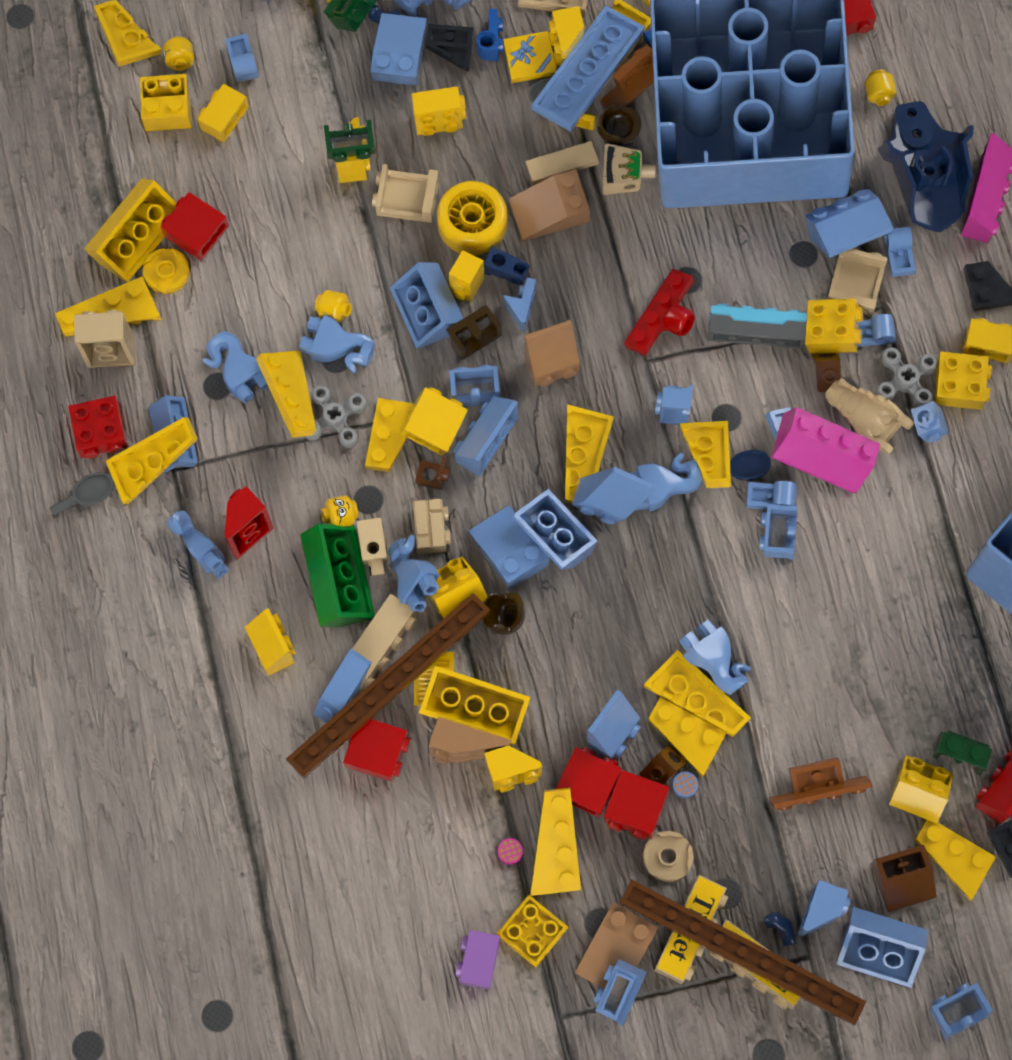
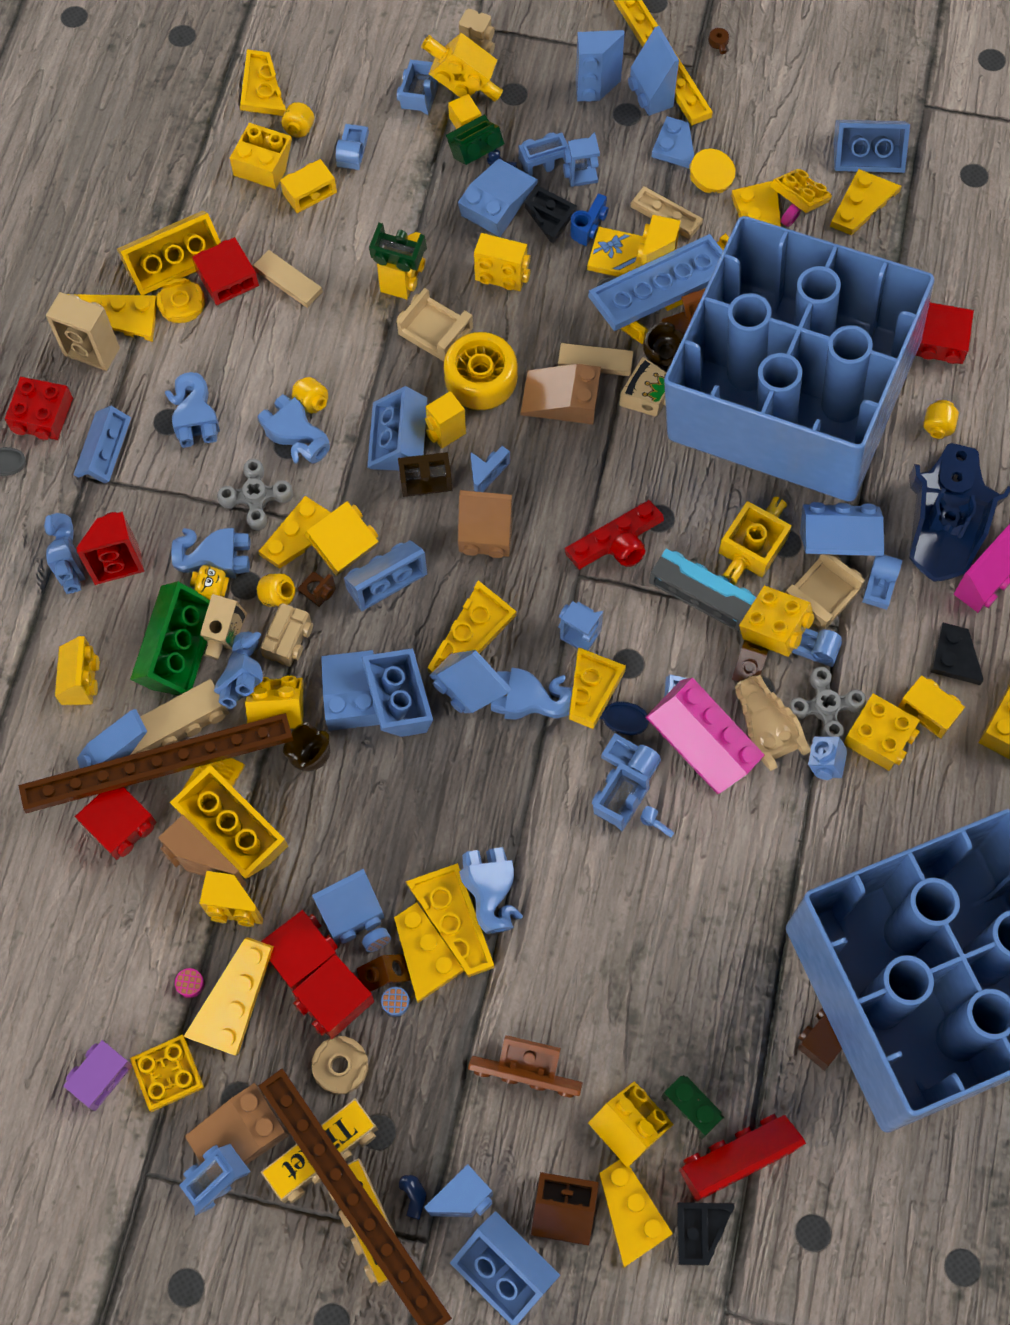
camera: 25 degrees right, 5 degrees down
(147, 459) = (61, 455): yellow wing -> none
(251, 207) = (288, 278): none -> tan tile
(289, 388) = (225, 447): yellow wing -> none
(328, 483) = (216, 551): none -> medium blue hips
(401, 492) = (275, 589): none -> yellow head
(474, 385) = (399, 523): medium blue window -> none
(506, 266) = (489, 428): dark blue leg -> none
(644, 743) = (376, 939): none -> medium blue tile
(784, 276) = (754, 539): none -> yellow brick
(809, 539) = (648, 818): none -> medium blue hand

